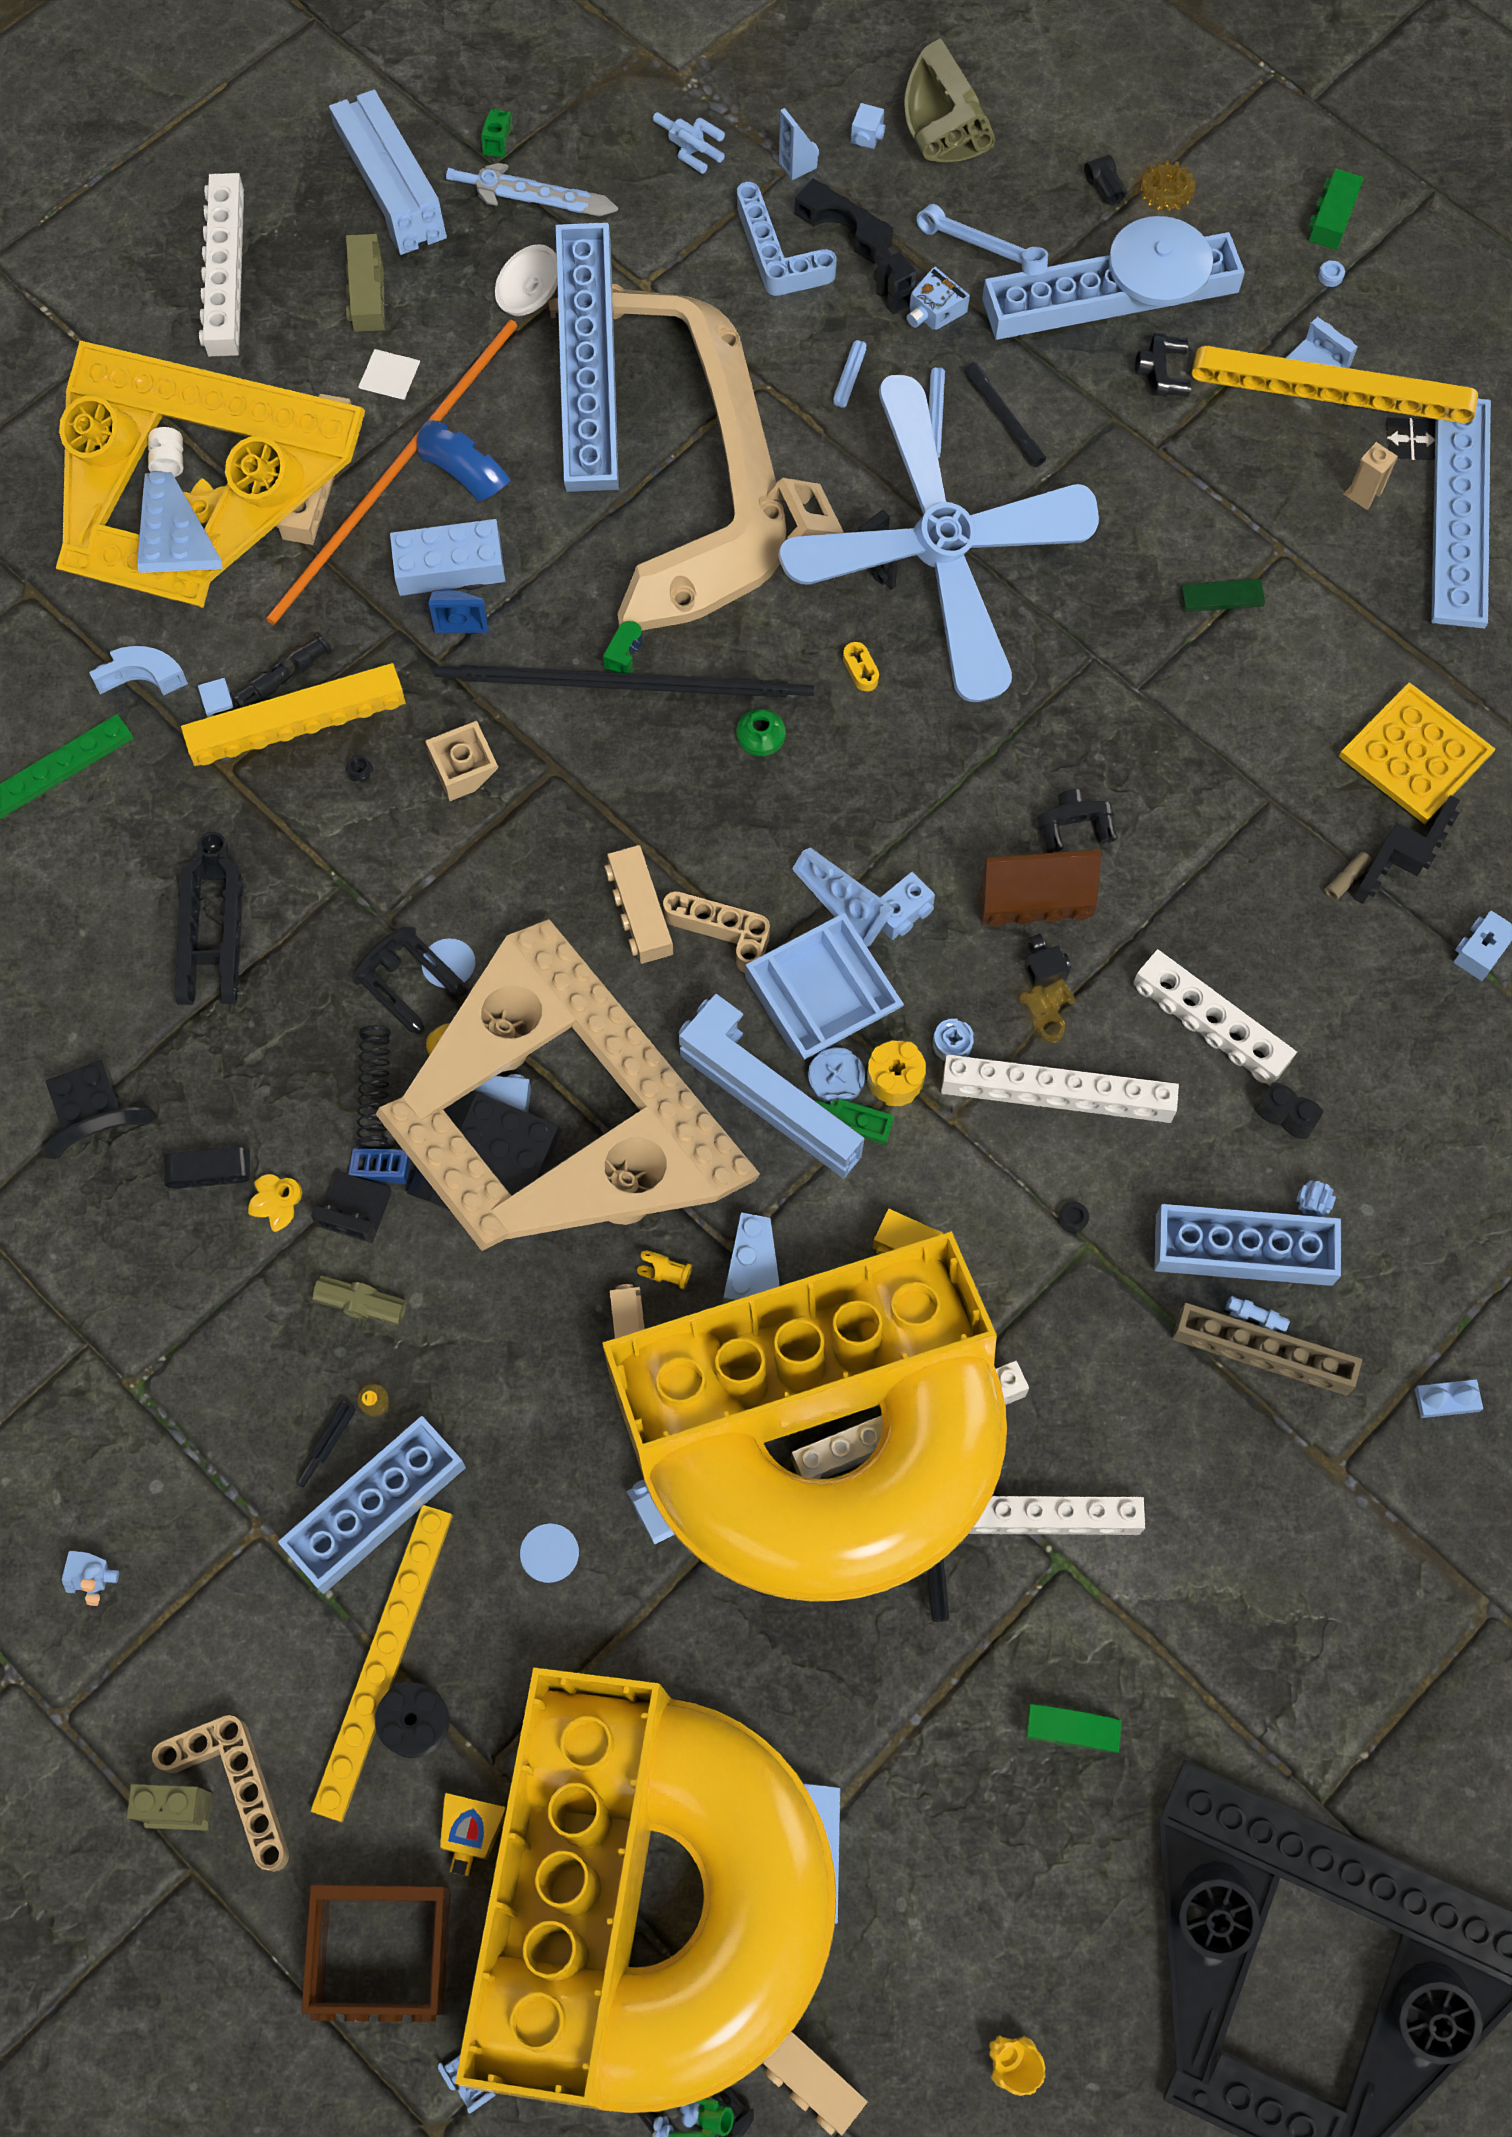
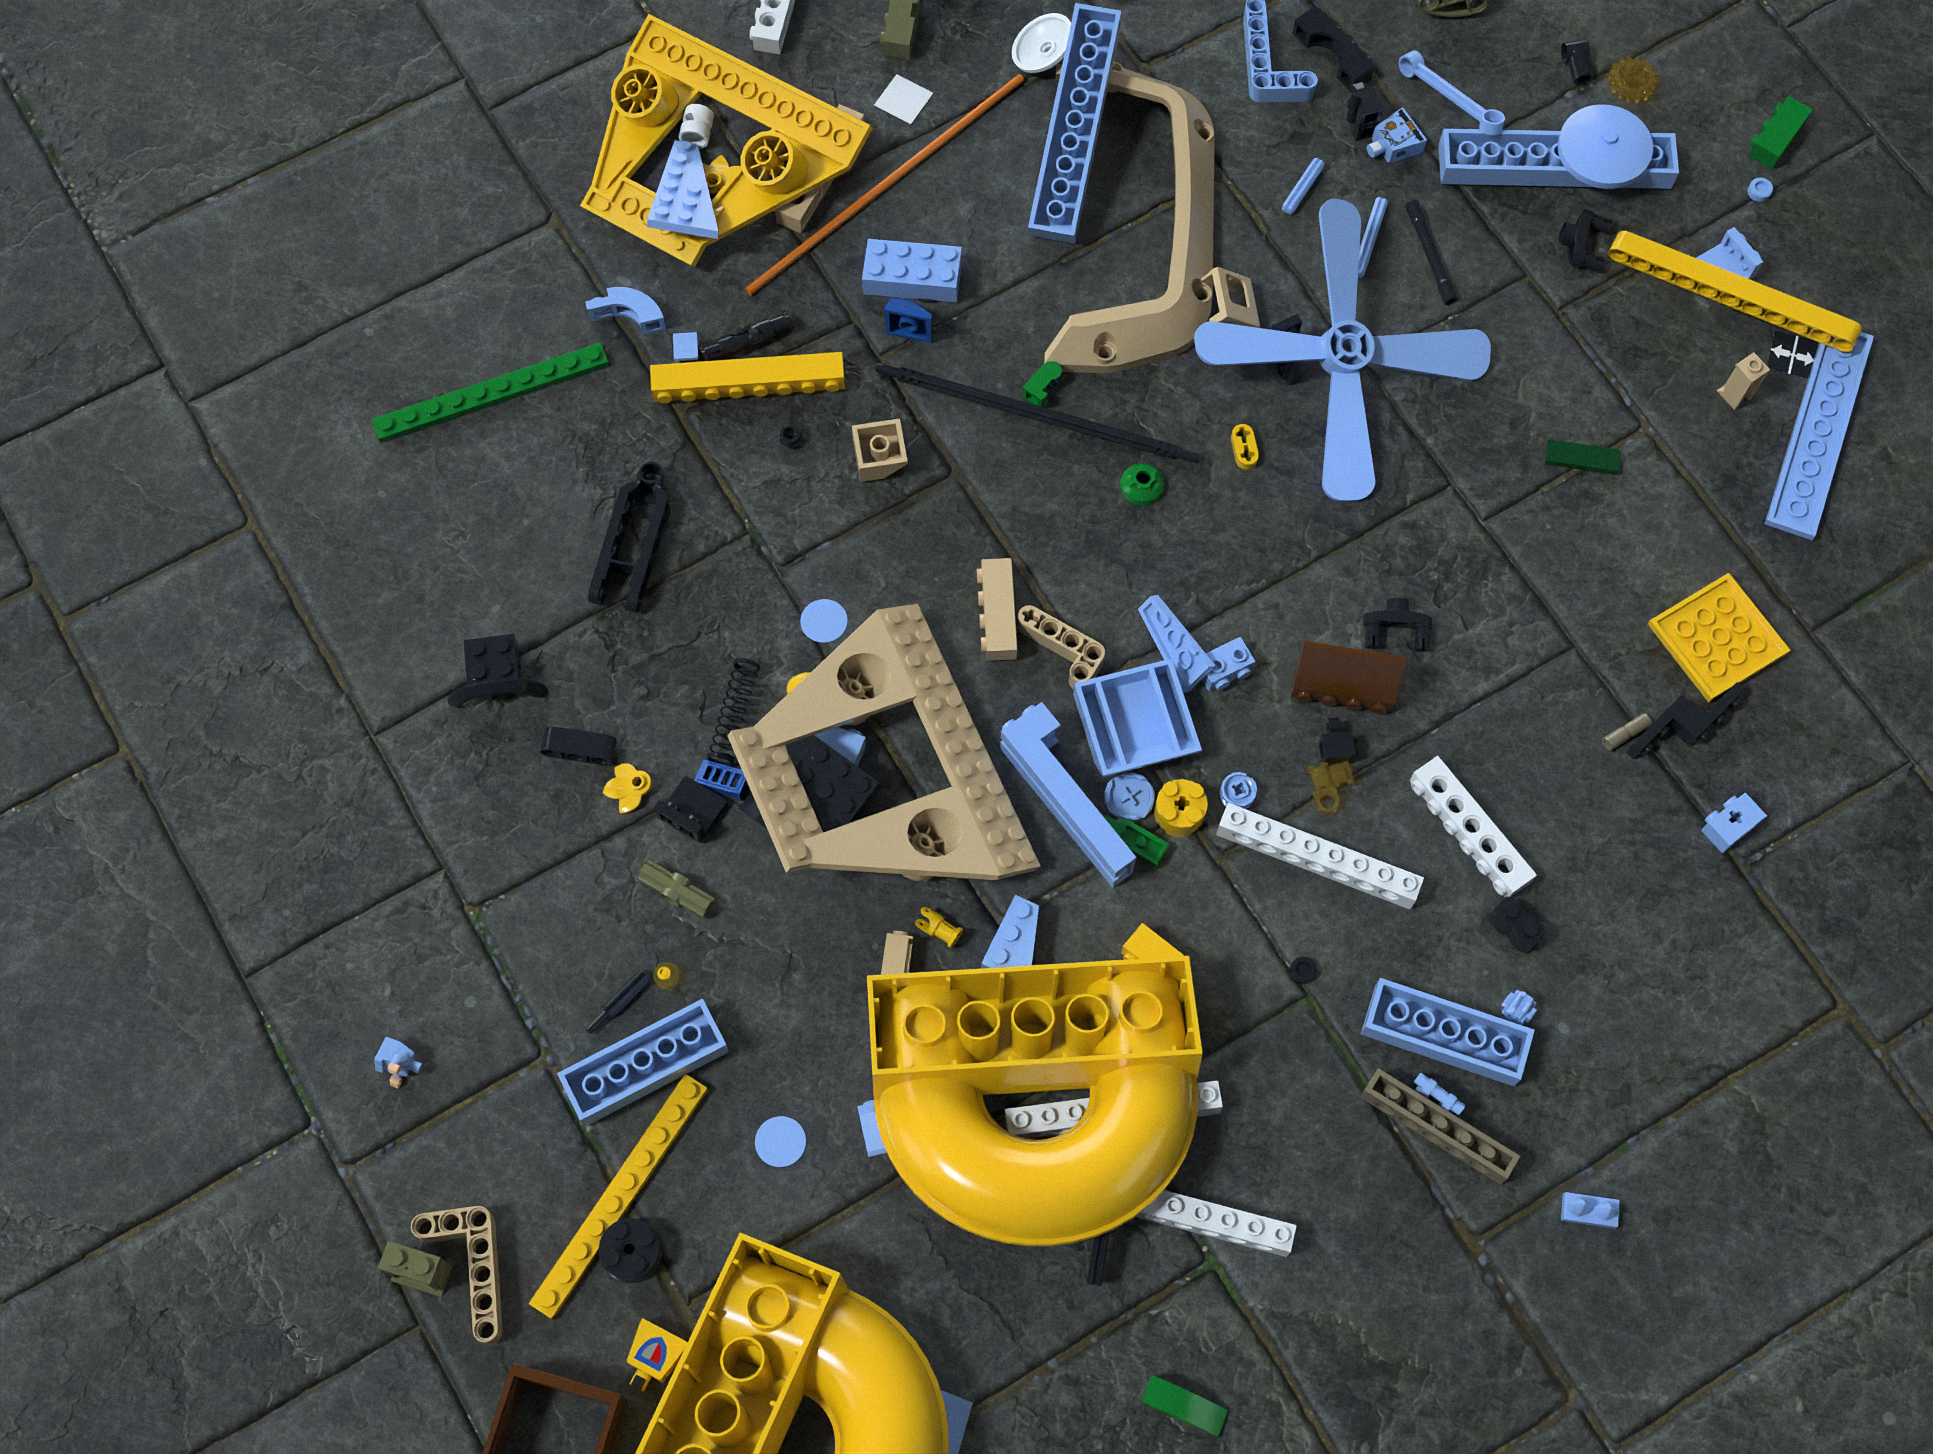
camera: 15 degrees right, 0 degrees up
(384, 954) = (771, 600): black piece -> none
(459, 458) = (943, 185): blue brick -> none

